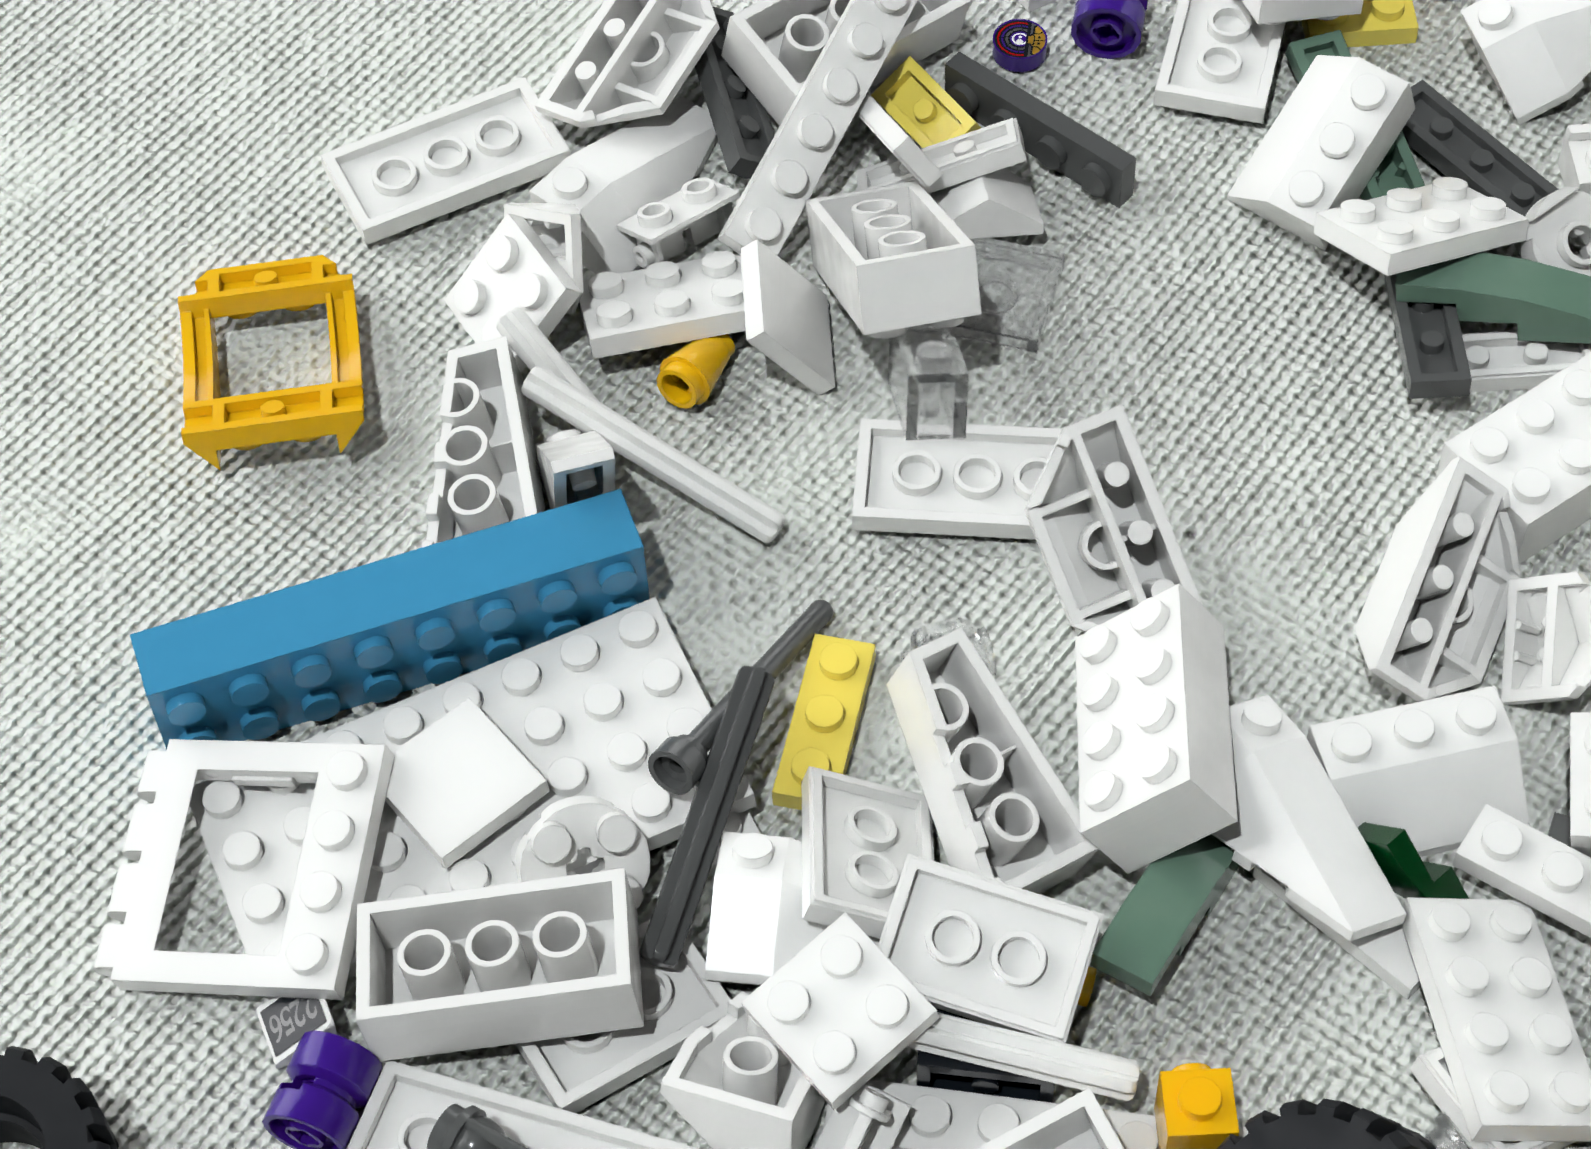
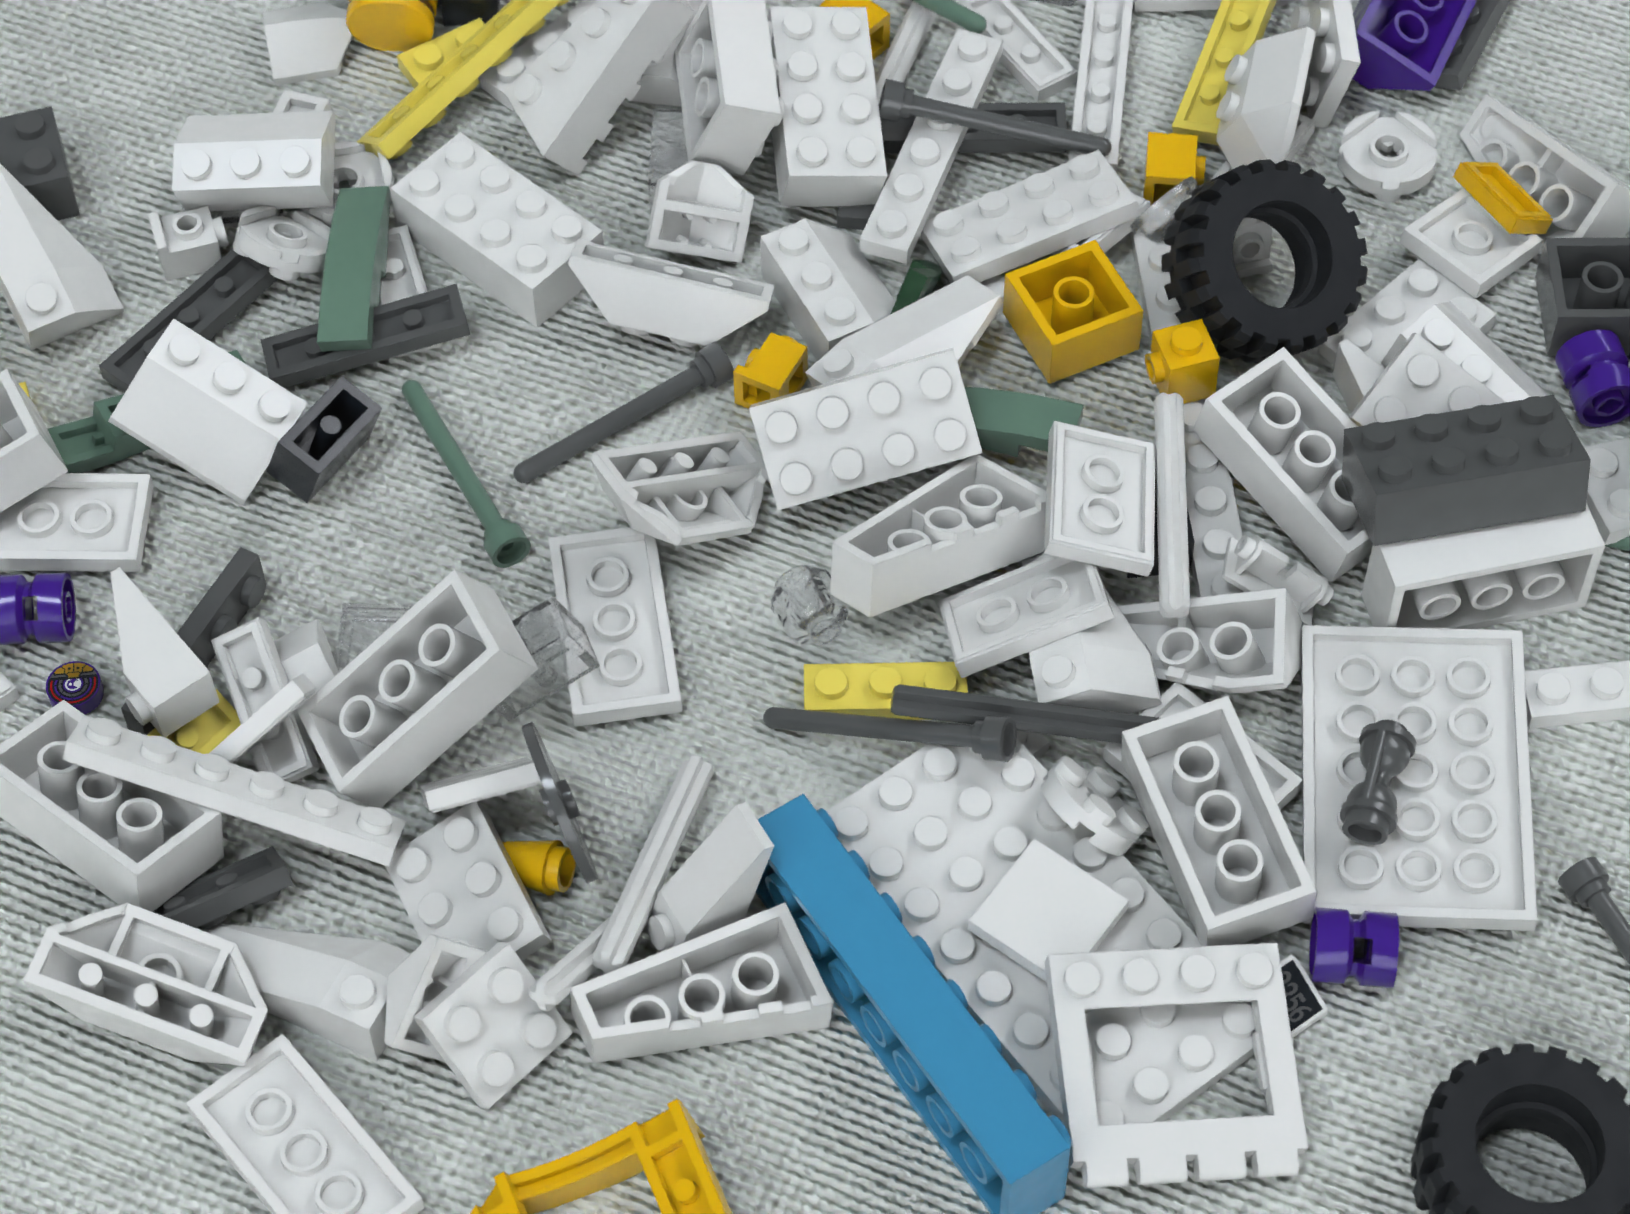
camera: 105 degrees left, 0 degrees up
(683, 348) = (559, 802): none -> dark grey piece
(698, 209) = (361, 910): white hinge -> none
(840, 1010) = (1188, 571): white plate -> none
(998, 60) = (161, 671): none -> white slope
(1111, 392) = (503, 540): none -> sand green piece
(1273, 245) = (324, 439): none -> black brick
(1299, 683) = (771, 371): none -> yellow brick
(1325, 630) = (708, 368): none -> dark grey piece
(1329, 1025) = (1072, 311): none -> yellow brick
(1420, 226) = (299, 329): white plate -> none

